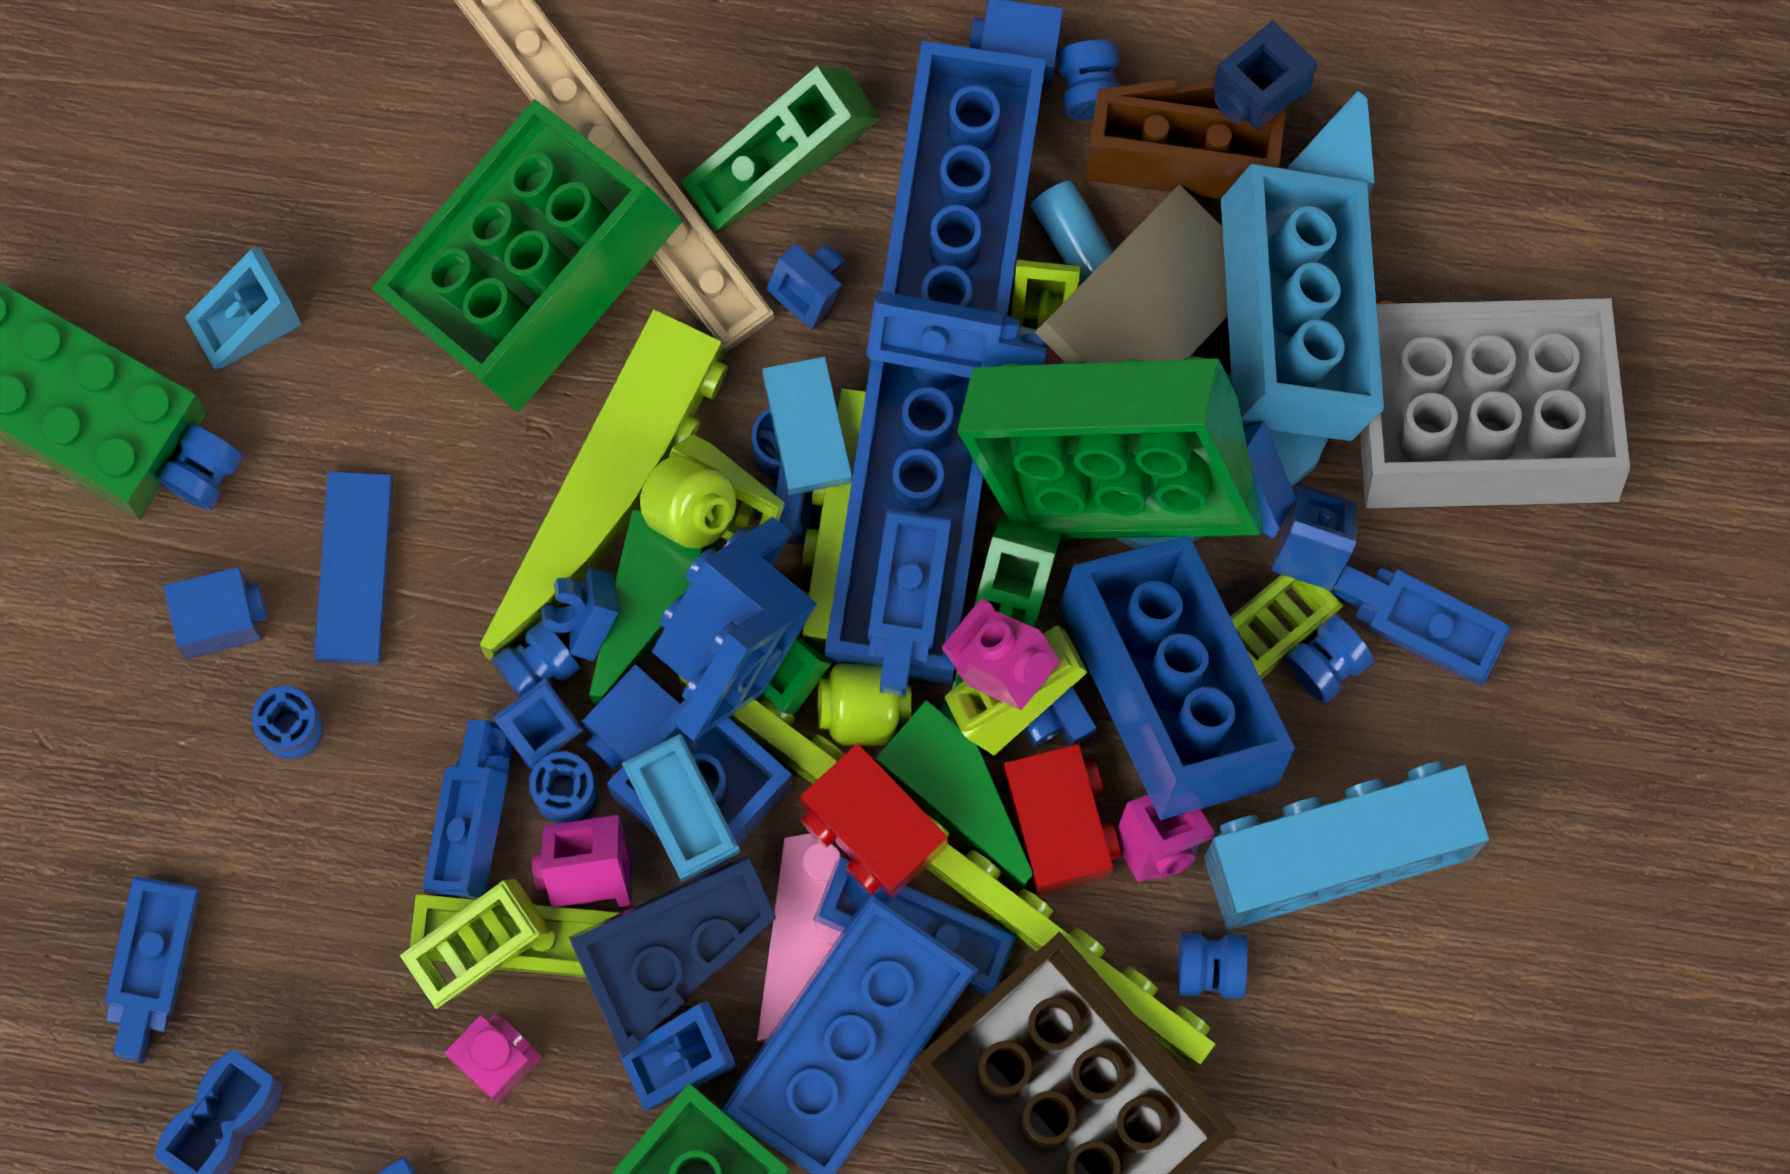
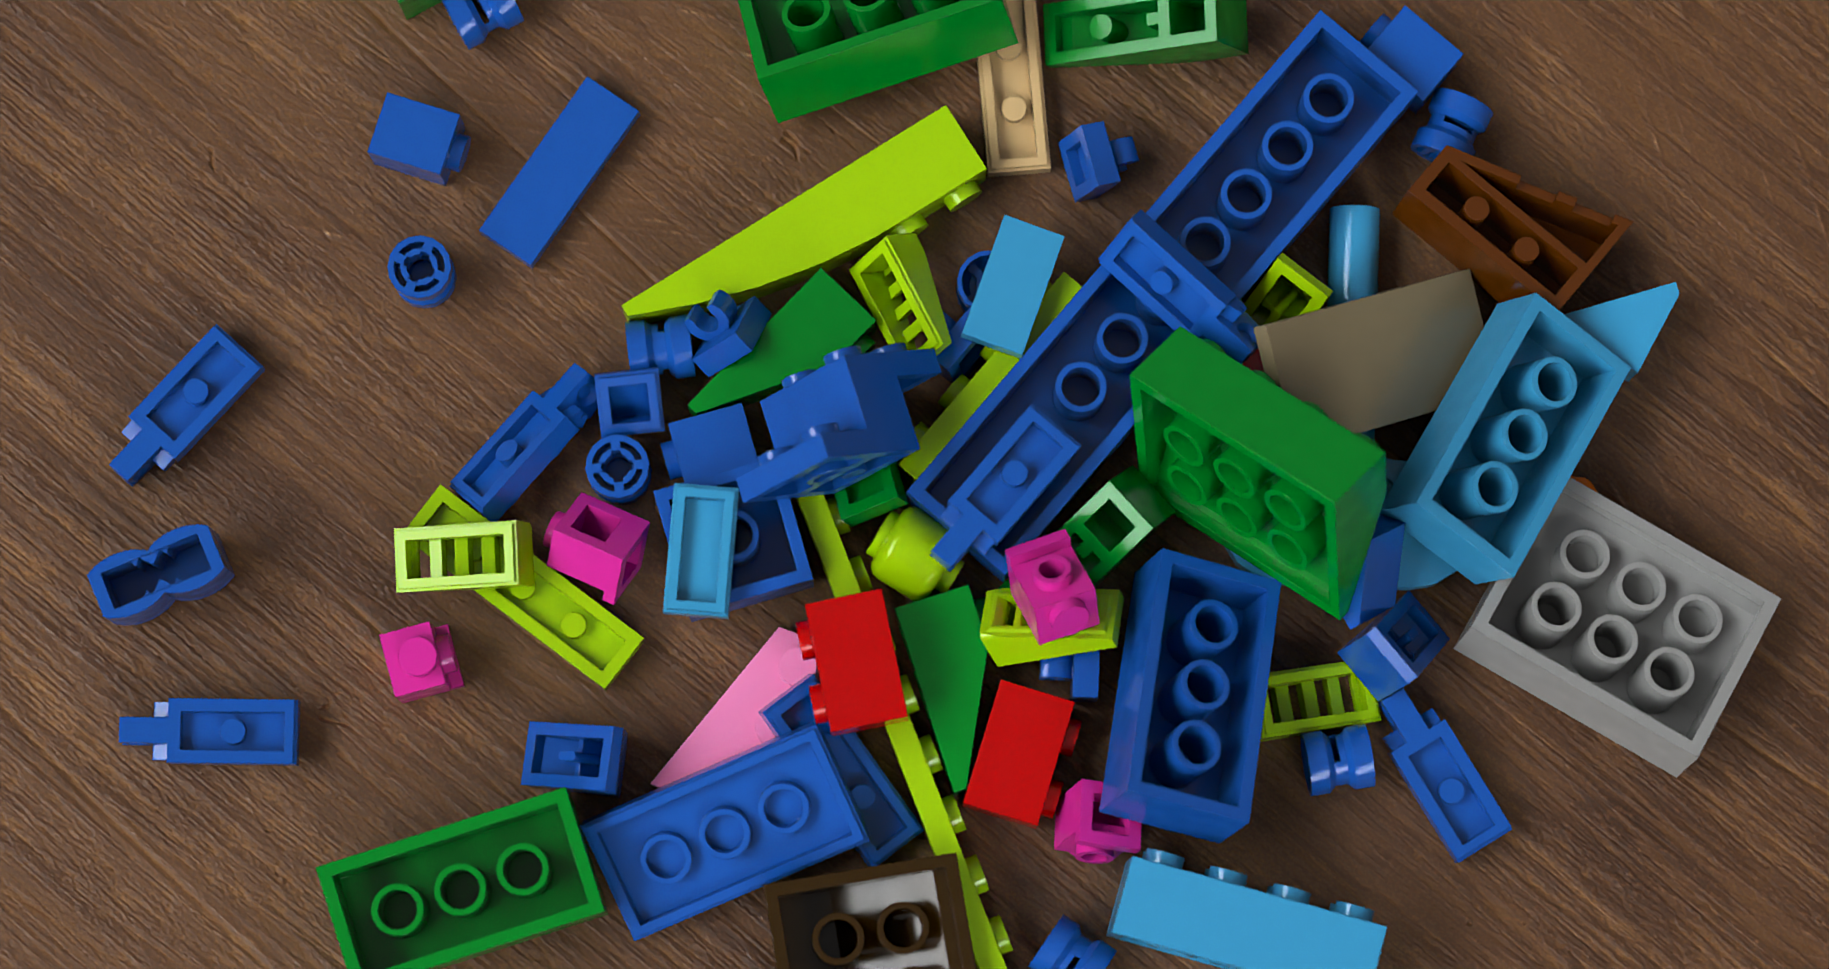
camera: 30 degrees right, 5 degrees up
(665, 948) = (622, 660): dark blue wing -> none
(688, 501) = (868, 292): lime head -> none
(1267, 61) = (1610, 212): dark blue brick -> none

